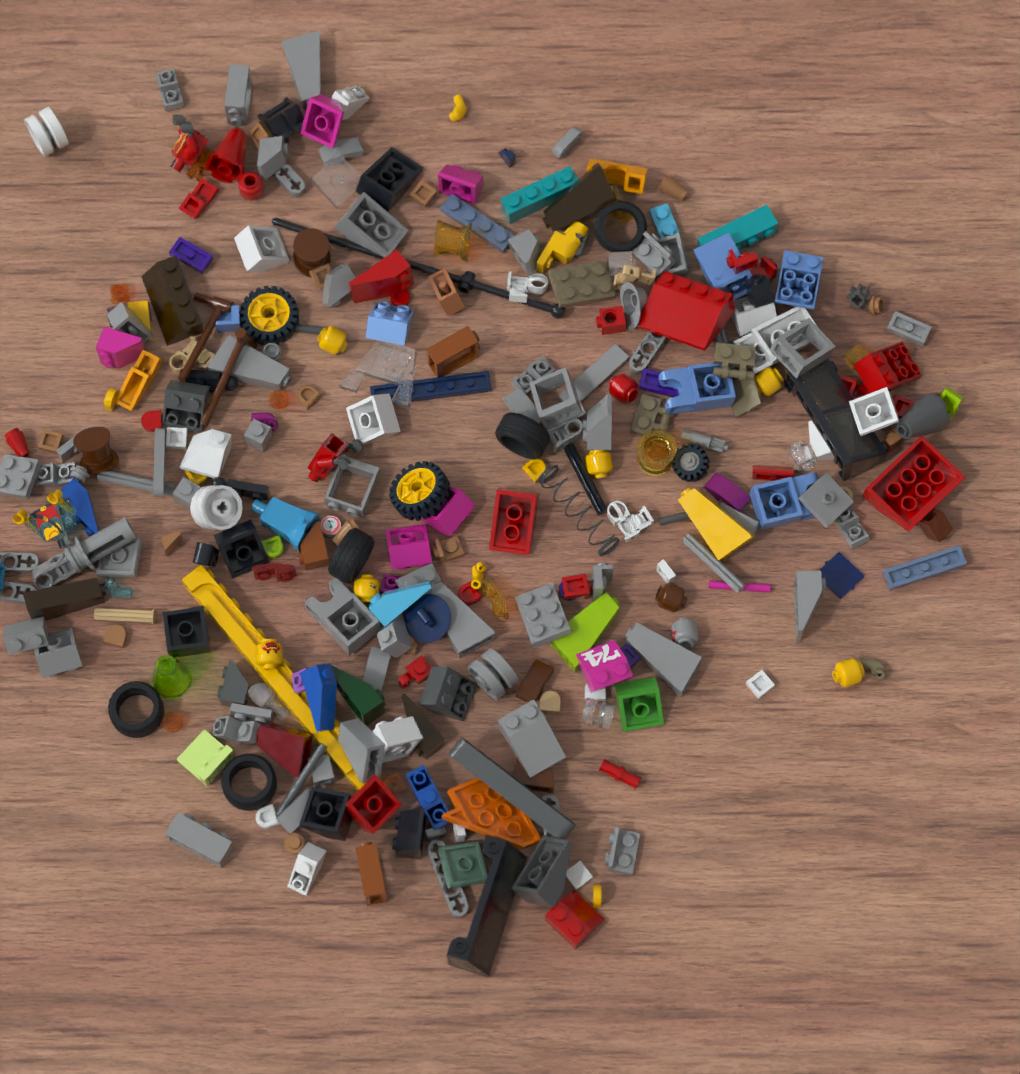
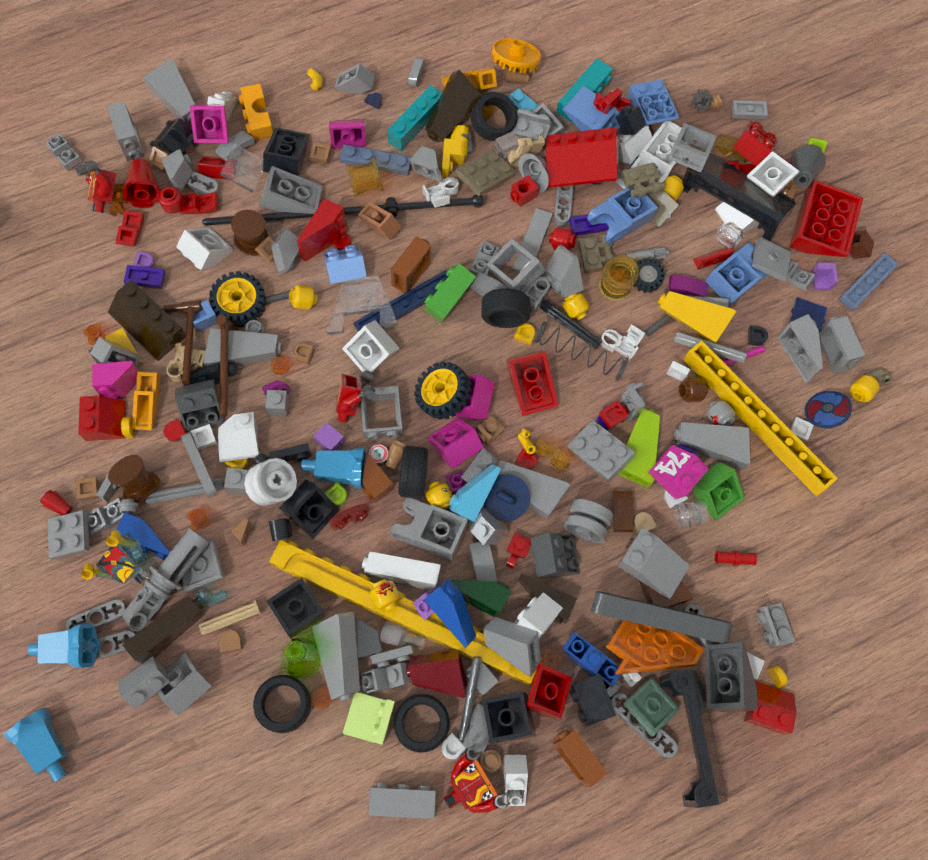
camera: 35 degrees left, 0 degrees up
(91, 379) = (100, 418): none -> red slope
(133, 508) = (192, 516): none -> clear orange plate
(198, 237) = (144, 259): none -> medium lavender tile
(204, 689) = (338, 654): none -> light grey slope
(267, 853) = (473, 786): none -> torso
(279, 200) = (200, 204): none -> red slope
(291, 490) = (329, 438): none -> medium lavender panel
(297, 641) = (402, 570): none -> white slope
(307, 164) = (211, 167): none -> red slope
(380, 107) = (253, 100): none -> light orange arch
(477, 395) = (448, 292): none -> bright green brick
(498, 127) = (355, 80): none -> light grey slope
(681, 166) = (516, 54): none -> light orange wheel
(719, 653) = (760, 419): none -> yellow brick
(772, 573) = (757, 335): none -> black tile
(797, 676) = (828, 409): none -> shield
(845, 617) = (840, 344): none -> light grey window
(879, 542) = (825, 276): none -> medium lavender panel

